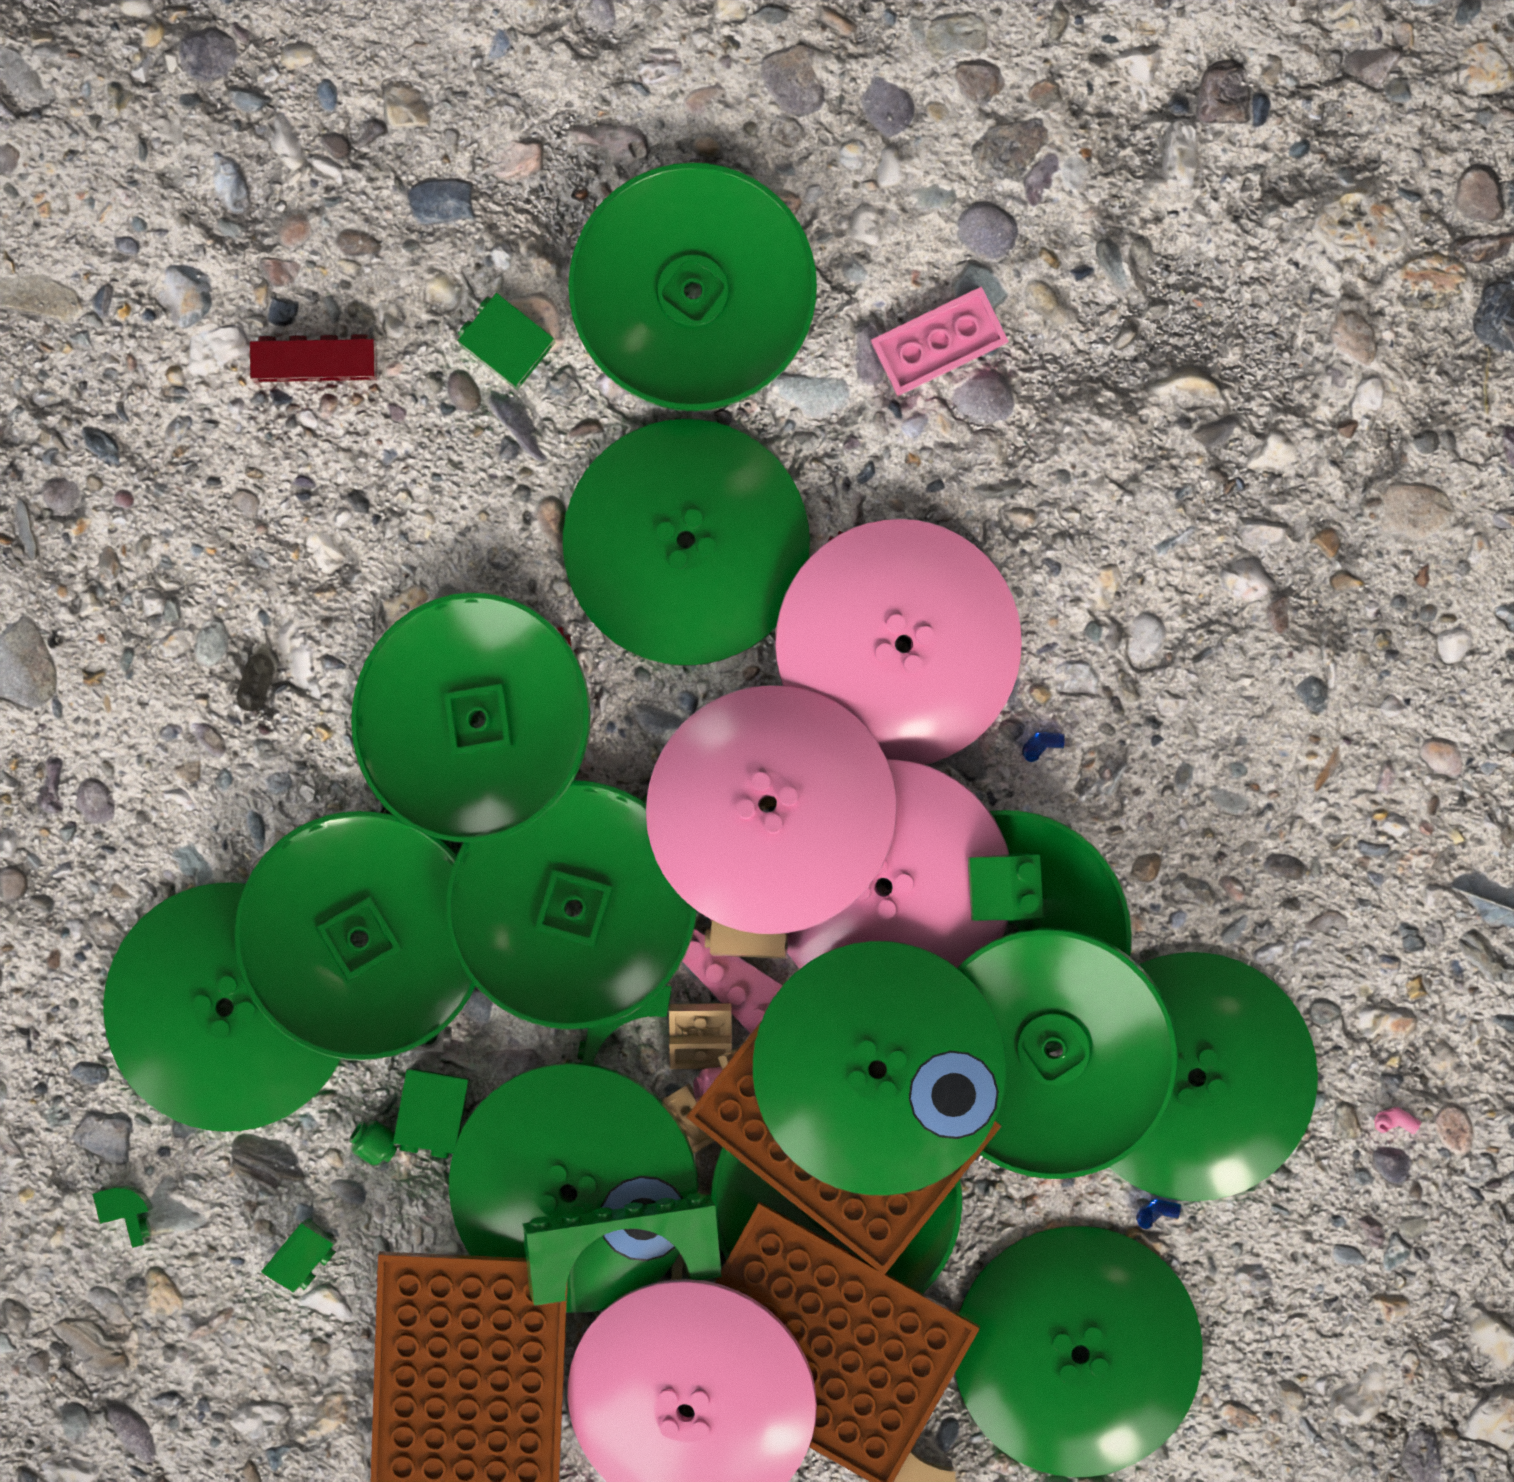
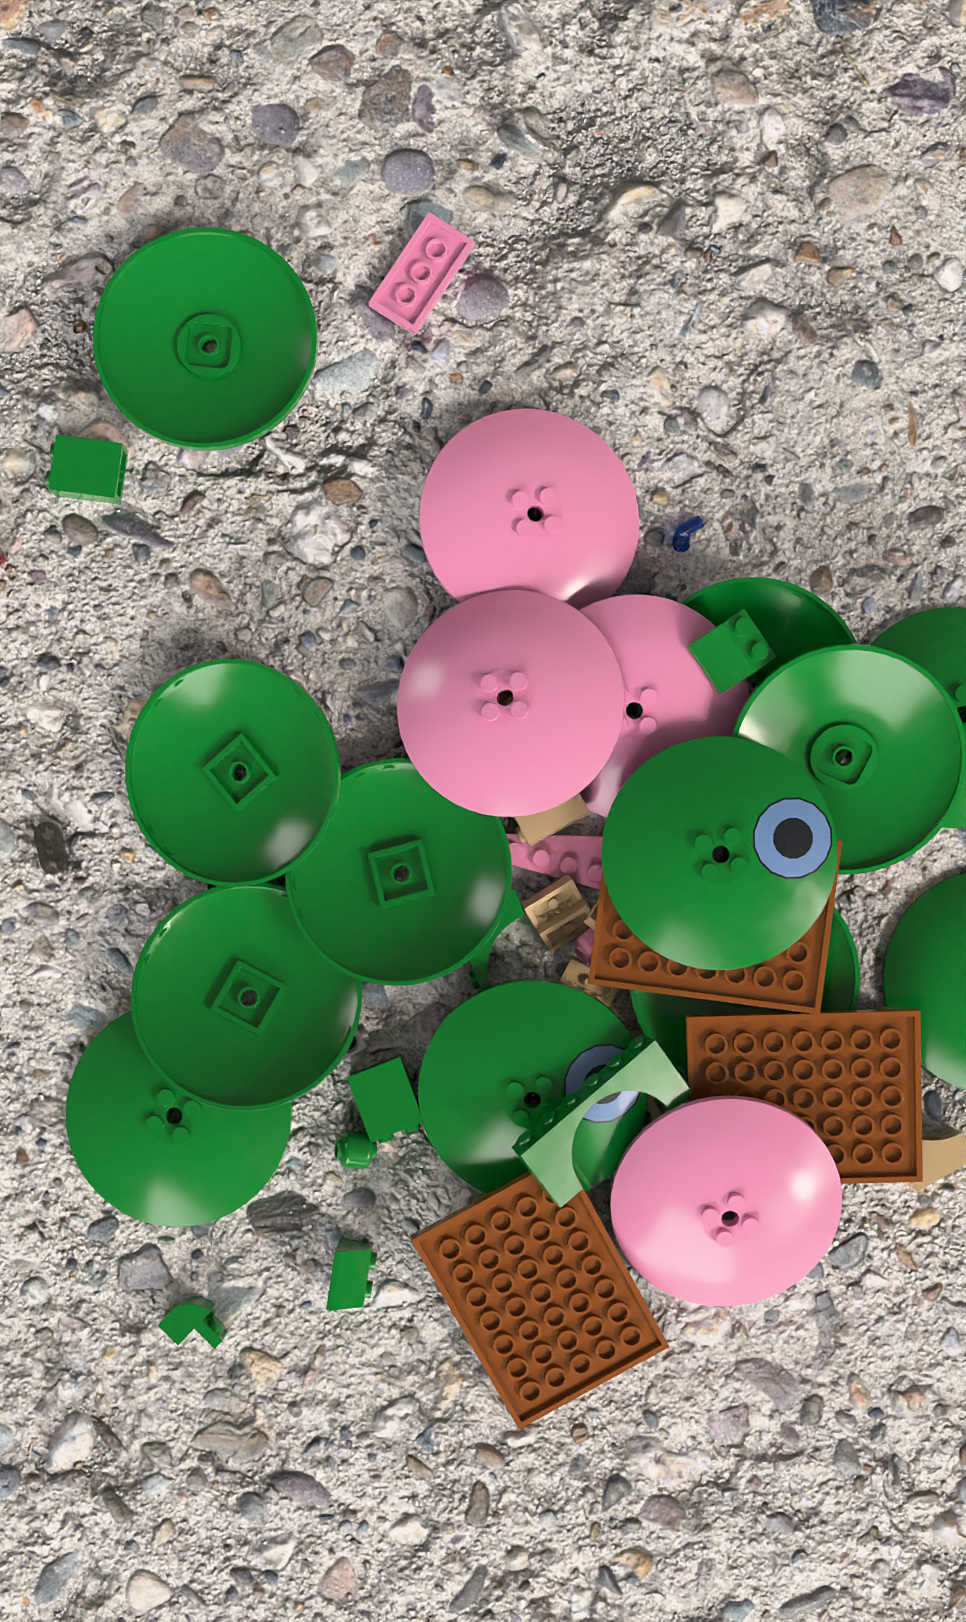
camera: 30 degrees left, 0 degrees up
(671, 599) = (329, 591): green dish -> none

